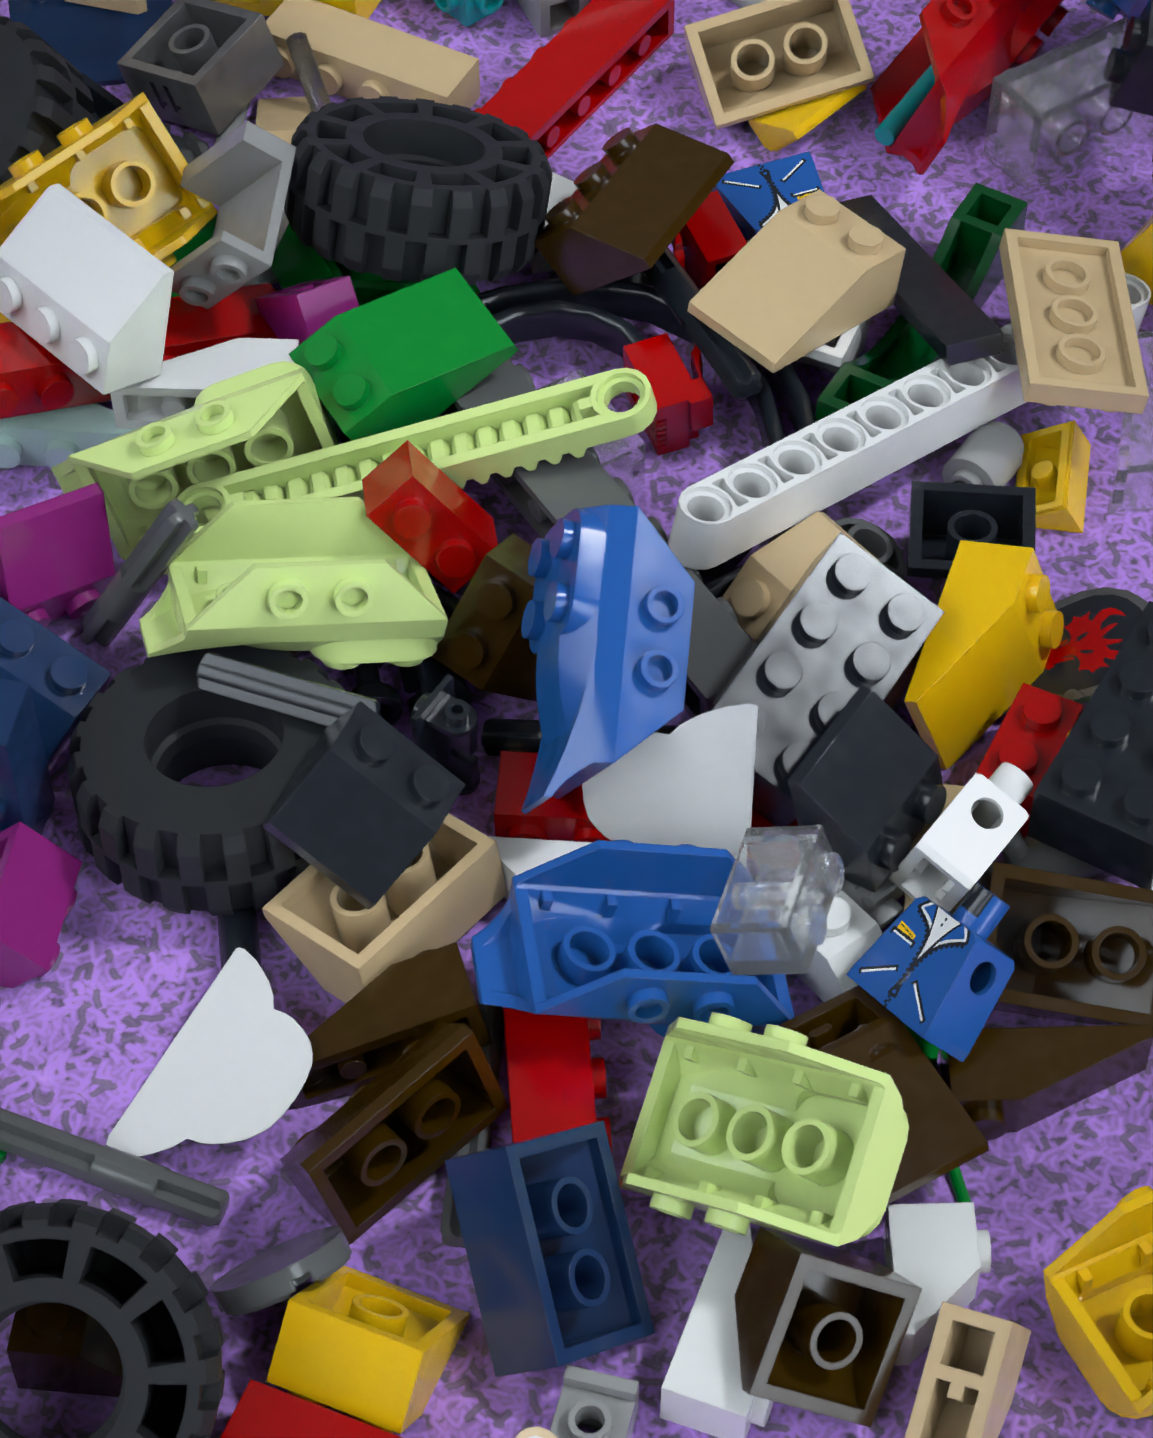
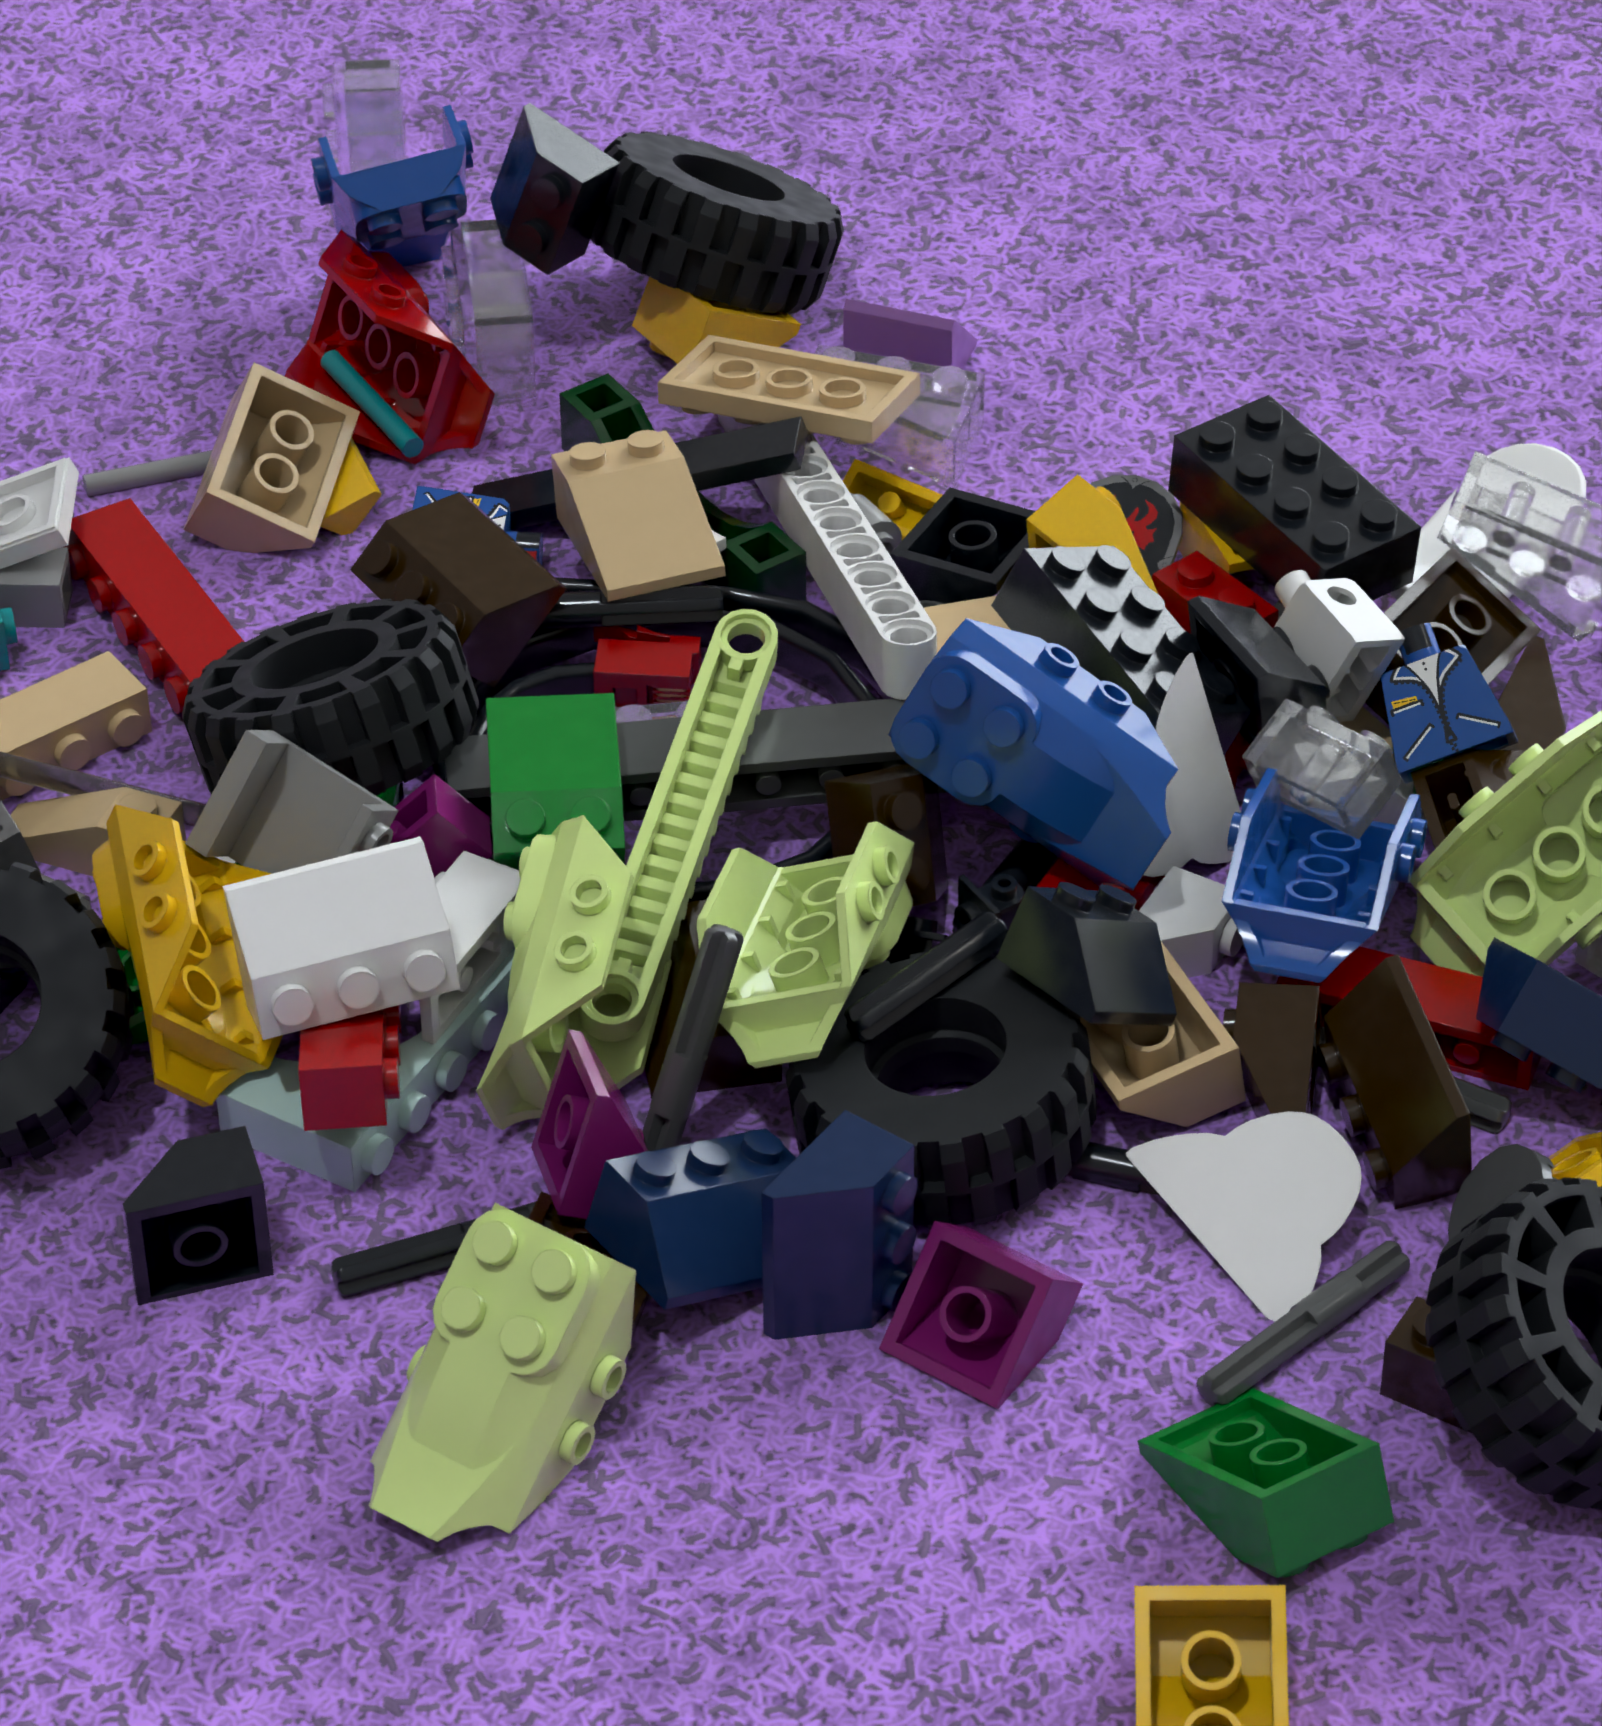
camera: 65 degrees left, 10 degrees down
(429, 516) = (764, 822): red brick -> none

